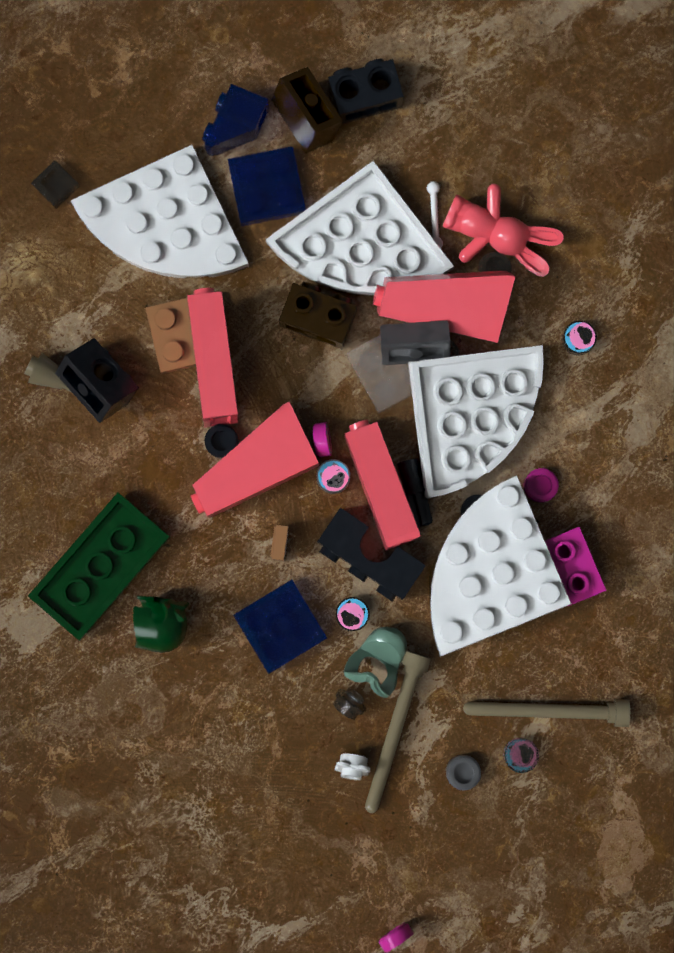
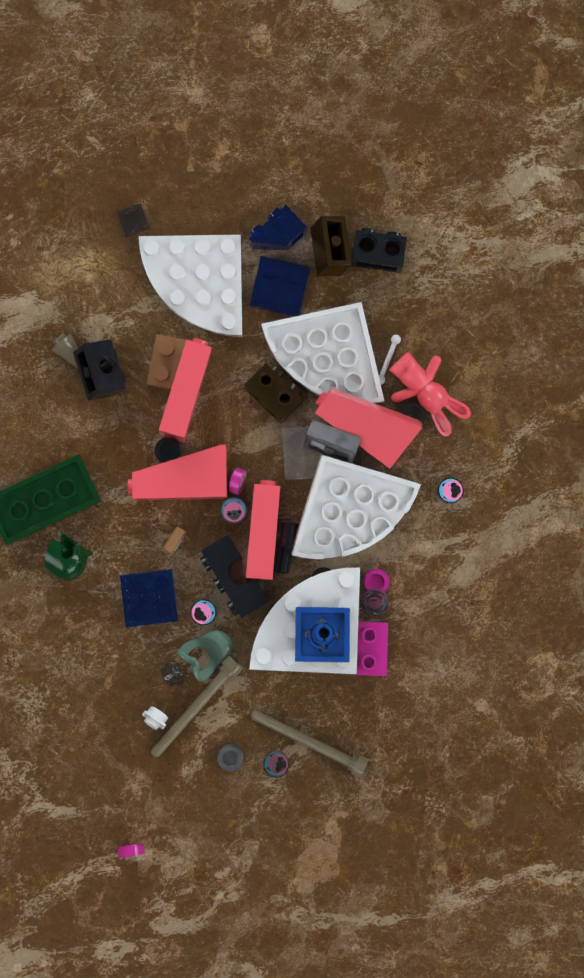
camera: 20 degrees right, 0 degrees up
(519, 552) = (322, 634): none -> blue plate
(551, 509) = (375, 602): none -> clear smoke tile

